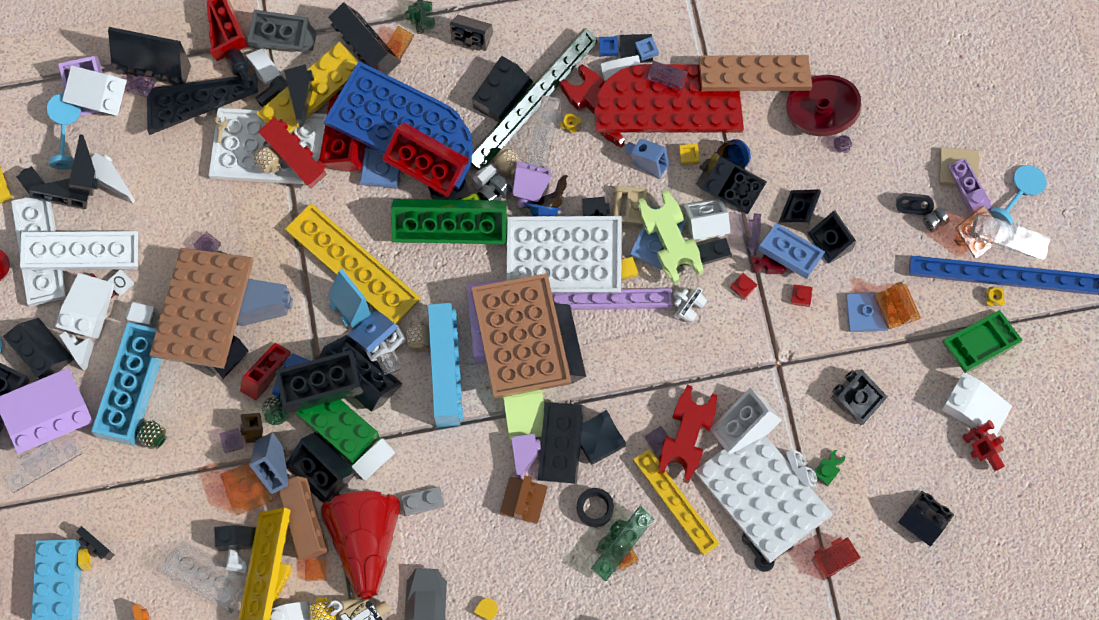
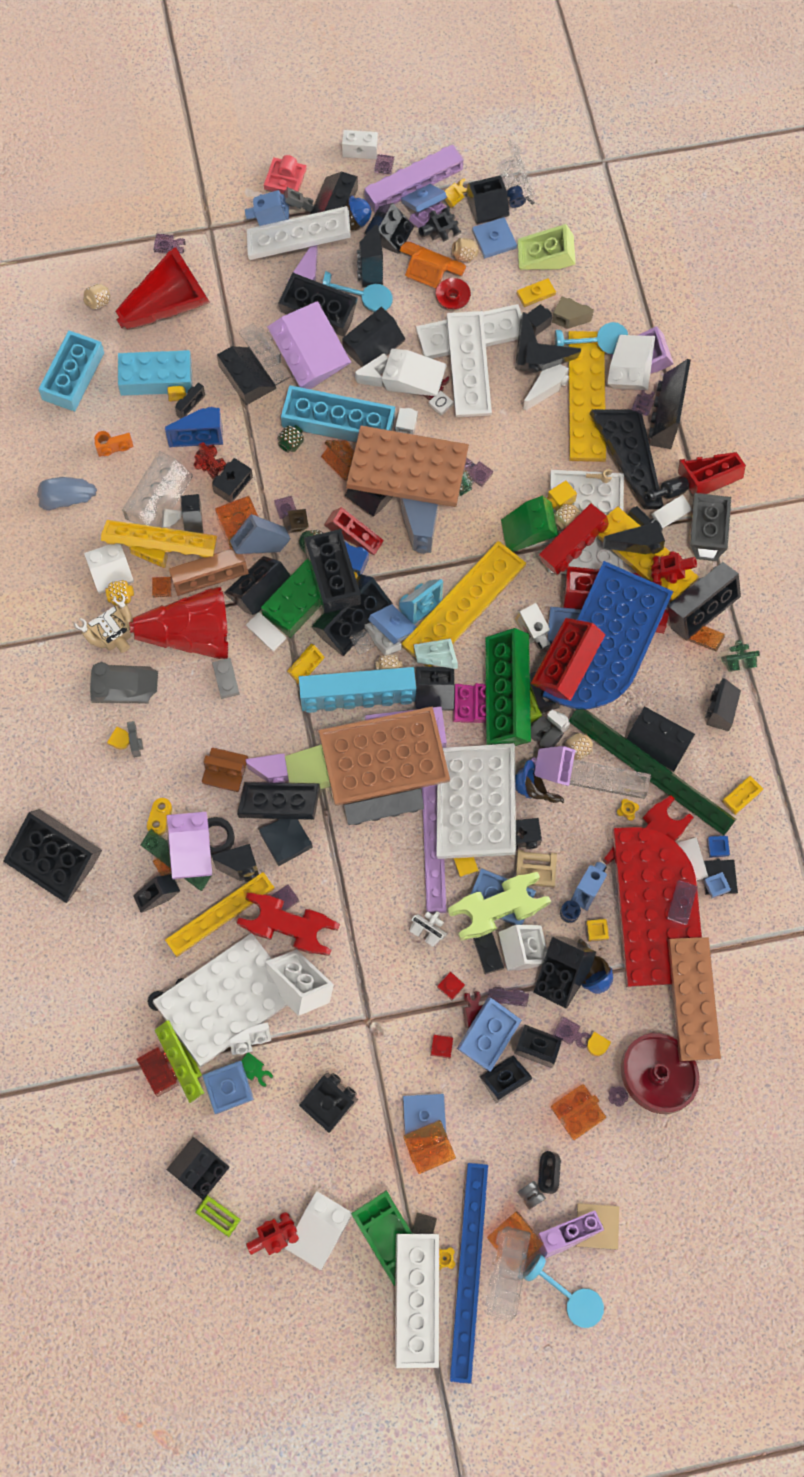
camera: 85 degrees right, 0 degrees up
(27, 150) = (571, 314): none -> dark tan slope
(66, 485) = (245, 373): none -> black slope
(128, 140) = (586, 393): none -> yellow plate
(133, 523) = (198, 427): none -> blue slope
(170, 523) = (206, 461): none -> clear red hips
(179, 381) = (339, 456): none -> clear orange bracket
(190, 486) = (224, 484): none -> black brick
(243, 164) = (562, 495): none -> yellow brick
(272, 197) = (529, 524): none -> green slope
(333, 60) = (671, 567): none -> red piece
(379, 197) = (529, 621): none -> white torso
(409, 286) = (436, 653): none -> light aqua wing
(411, 419) = (306, 663): none -> yellow plate
(445, 287) = (435, 688): none -> black slope
(458, 261) = (469, 703): none -> dark pink slope
(493, 591) = (135, 743): none -> dark grey plate
(558, 23) = (742, 795): none -> yellow plate
(572, 566) = (159, 816): none -> yellow plate
(611, 526) = (189, 845): none -> lavender slope
(627, 479) = (237, 863): none -> black slope
(655, 565) = (156, 892): none -> black slope
(673, 173) = (572, 908): none -> dark blue wheel
(786, 182) = (568, 1032): none -> clear purple plate
(796, 159) = (597, 1045): none -> yellow tile
(828, 533) = (181, 1061): none -> lime bracket
(847, 491) = (228, 1087): none -> medium blue plate
(858, 177) = (578, 1112): none -> clear orange bracket
(959, 513) = (232, 1226): none -> lime tile
(966, 314) = (424, 1224): none -> clear smoke plate
(1035, 318) = (417, 1301): none -> white plate

